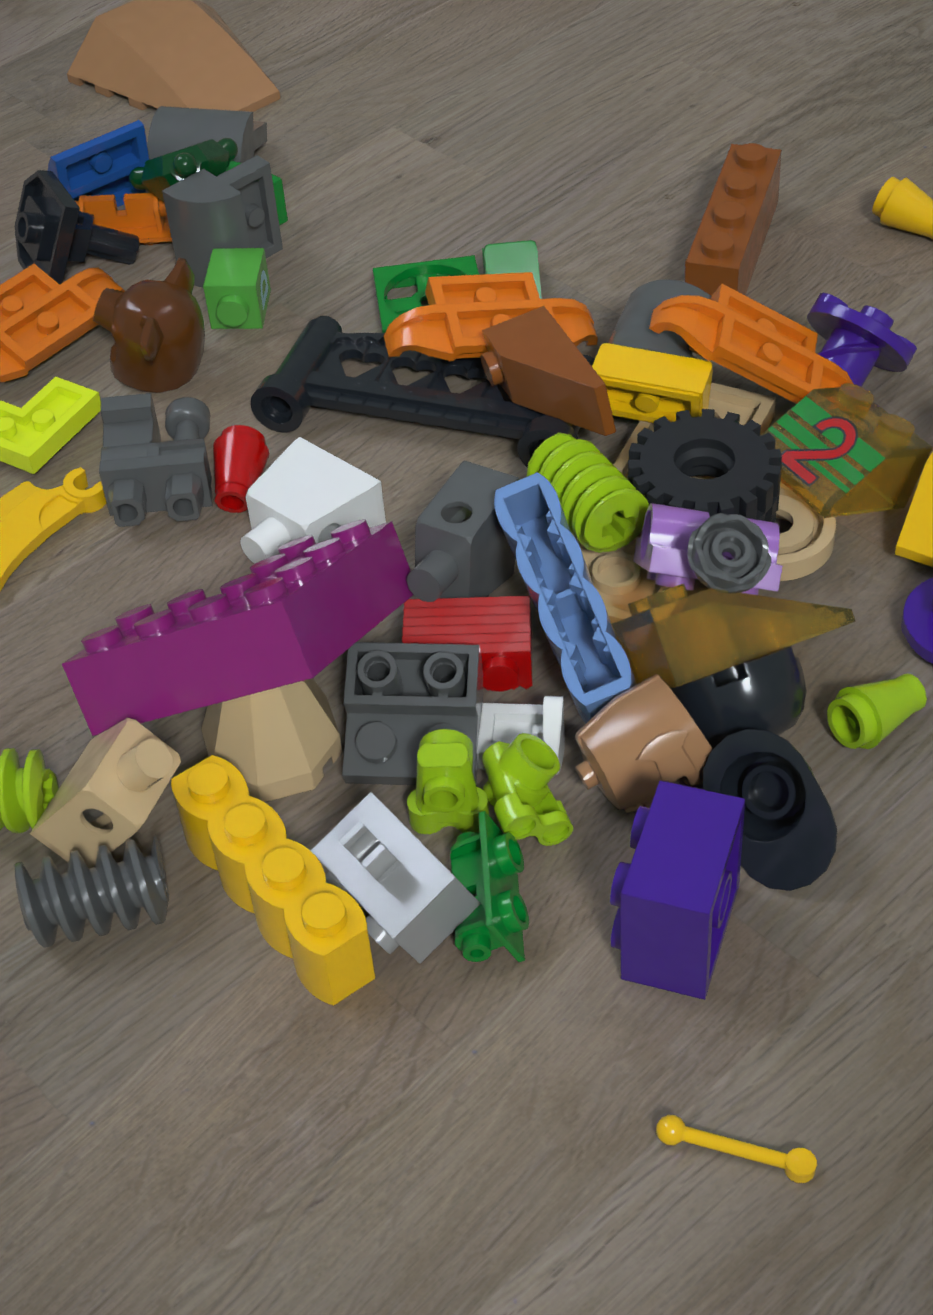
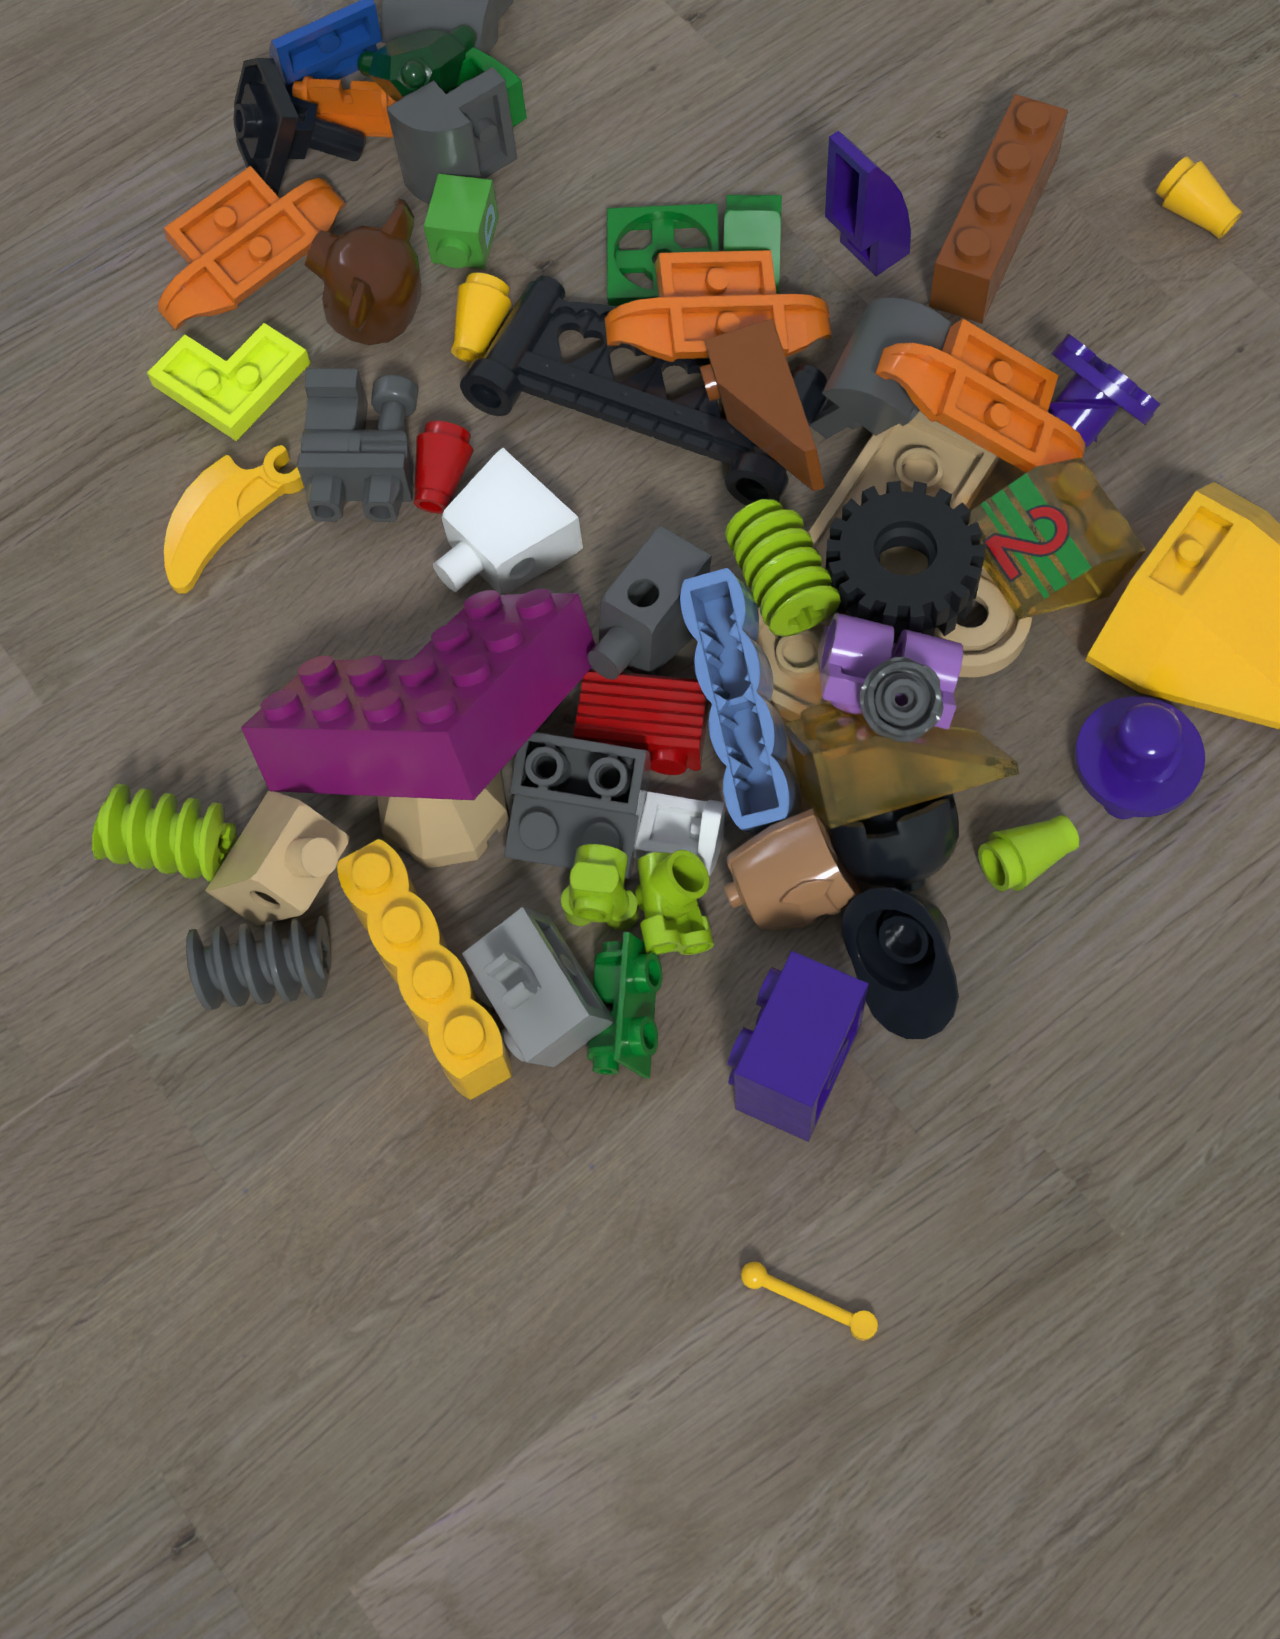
camera: 10 degrees right, 20 degrees up
(262, 350) = (479, 314): none -> yellow cone
(613, 224) = (865, 207): none -> dark purple slope
(653, 383) = (870, 432): yellow slope -> none

